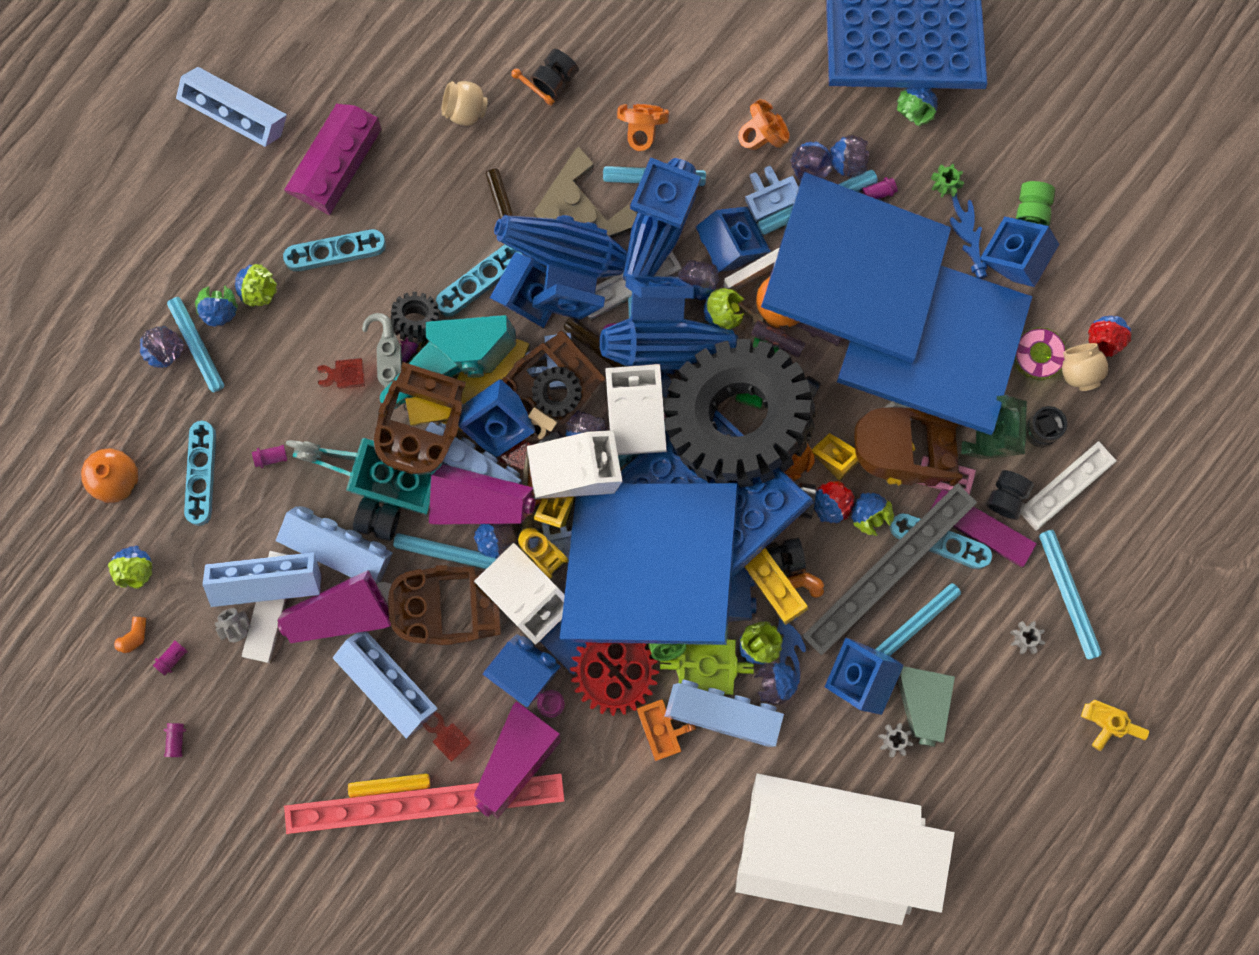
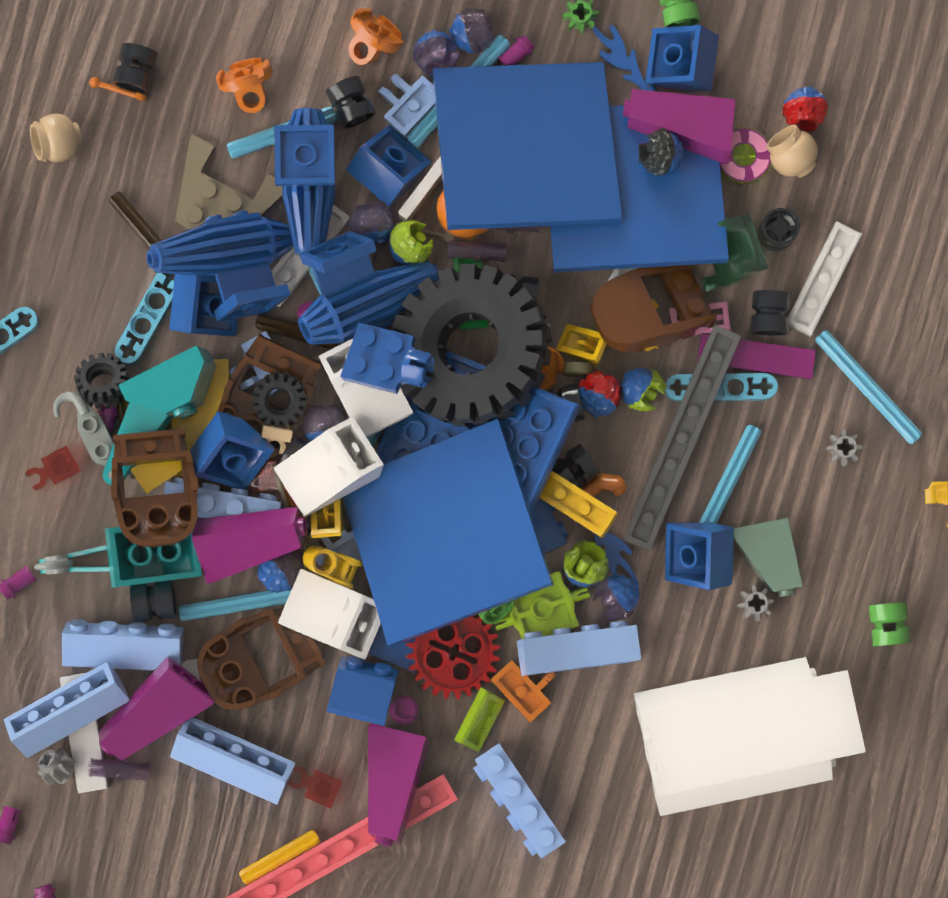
camera: 25 degrees left, 5 degrees up
(284, 650) = (118, 769): none -> clear purple pin
(612, 739) = (479, 719): none -> lime plate
(617, 823) = (520, 801): none -> light blue brick
(661, 394) = (386, 360): none -> blue plate
(723, 176) = (351, 104): none -> black wheel
(822, 473) = (577, 369): none -> olive tile
(971, 319) = (661, 153): none -> pearl dark grey piece
(1001, 301) = (699, 122): none -> magenta slope
(1008, 798) = (889, 613): none -> bright green wheel

